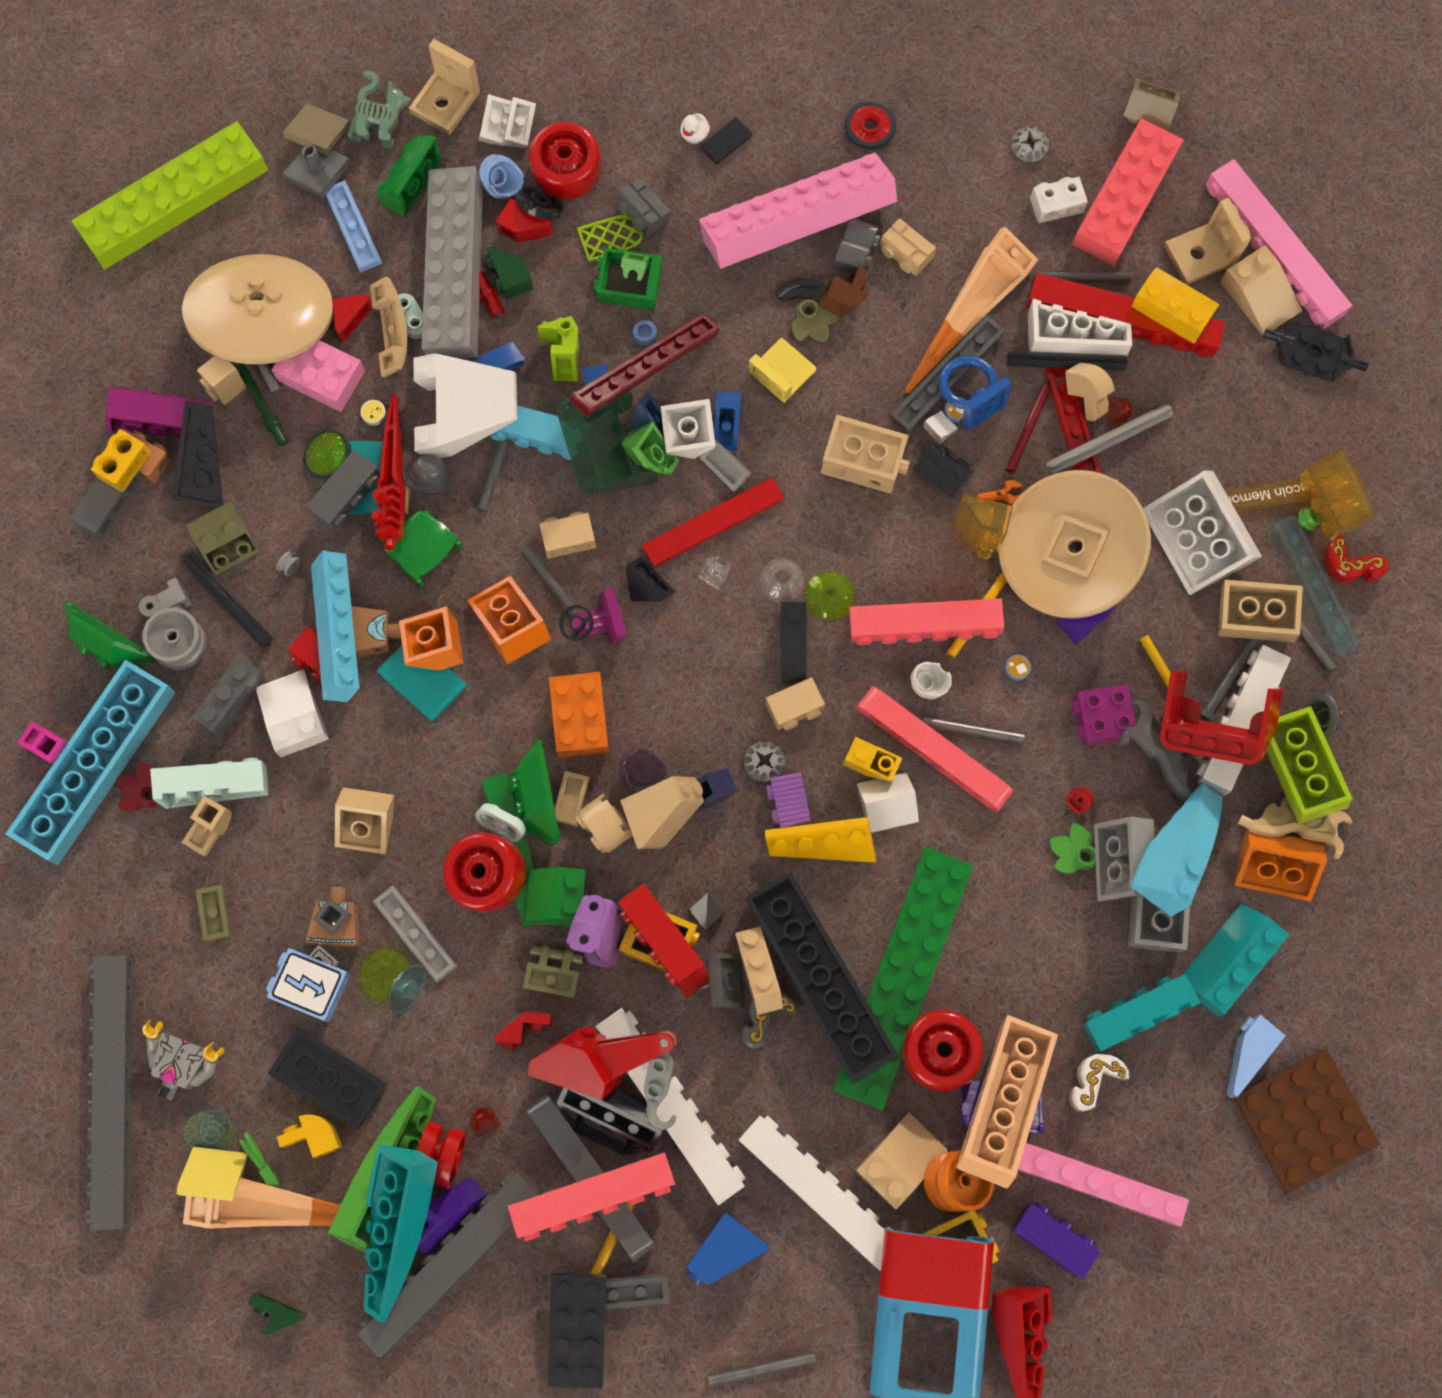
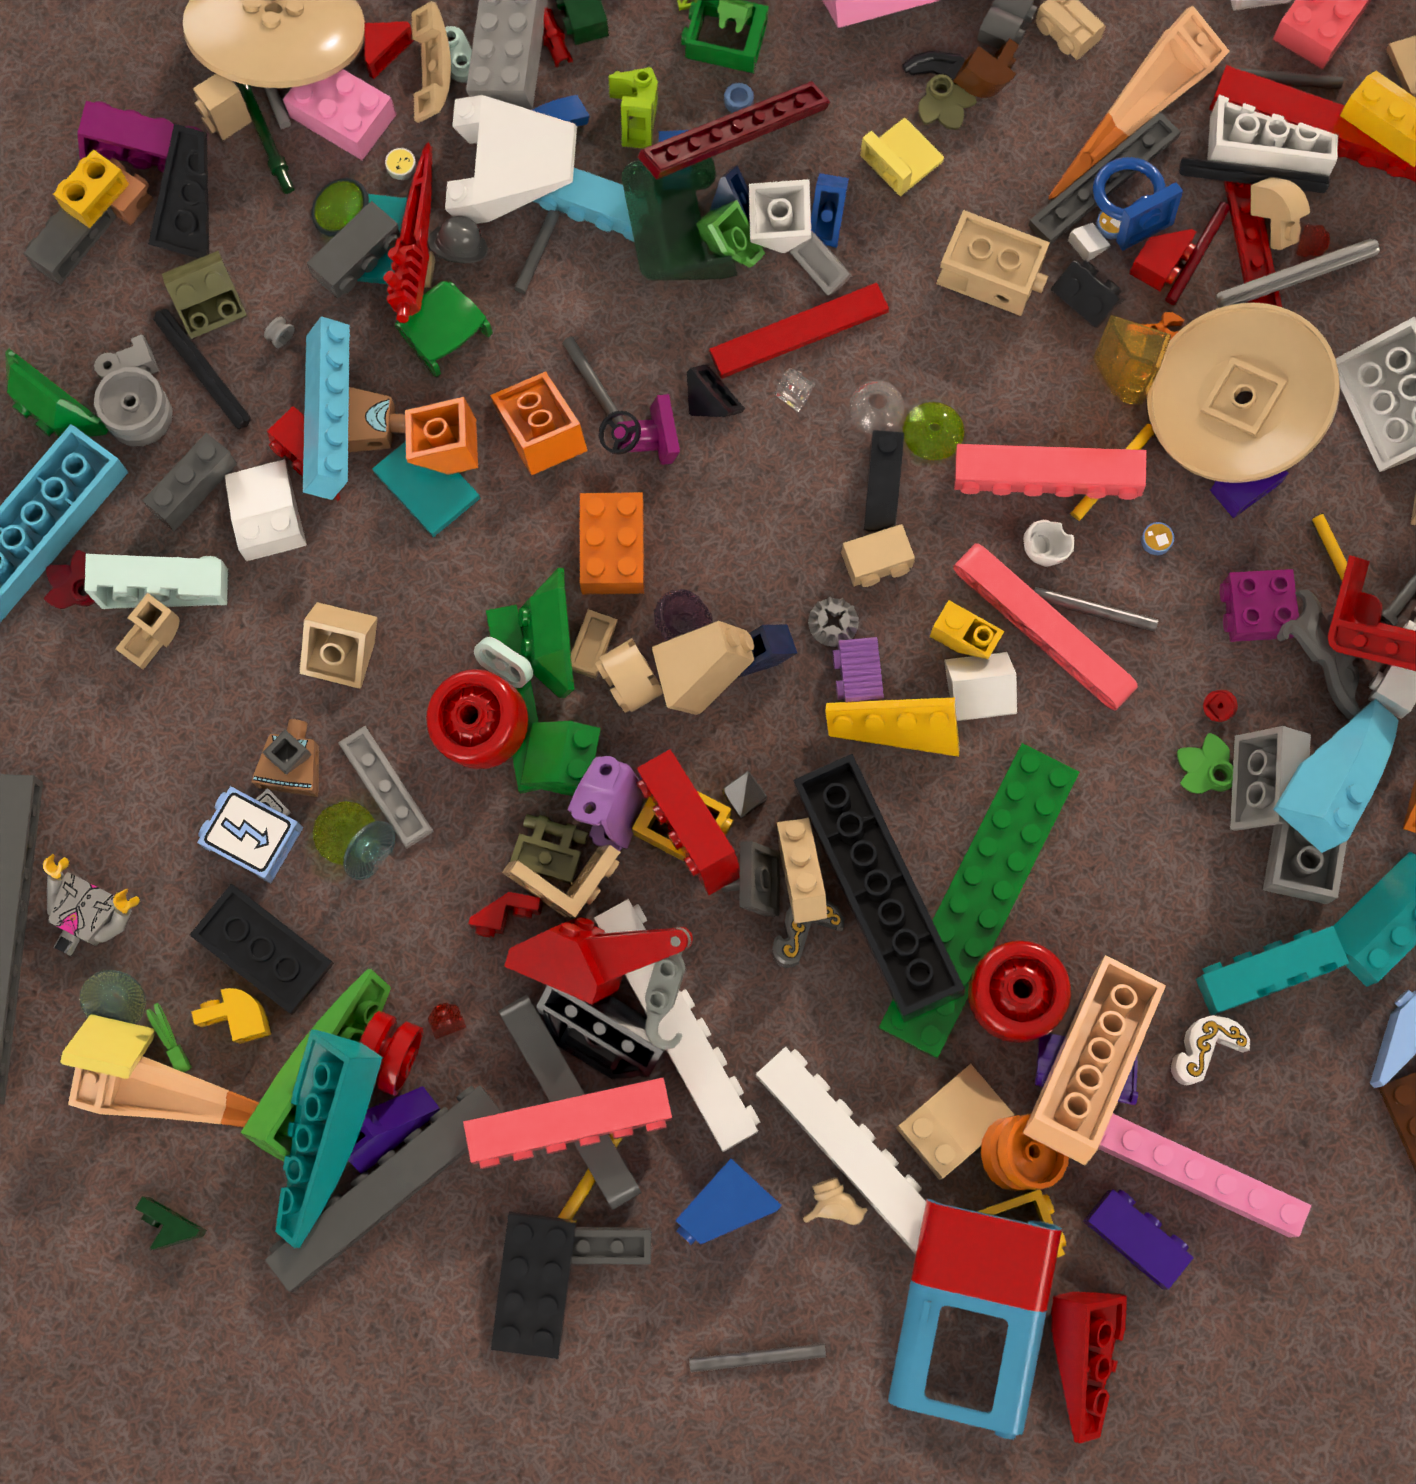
camera: 10 degrees right, 0 degrees up
(213, 913) = (145, 737): olive plate -> none
(567, 534) = (620, 328): tan brick -> none
(583, 1005) = (582, 890): none -> tan bracket
(811, 1237) = (835, 1203): none -> tan animal
(999, 434) = (1160, 258): none -> red slope

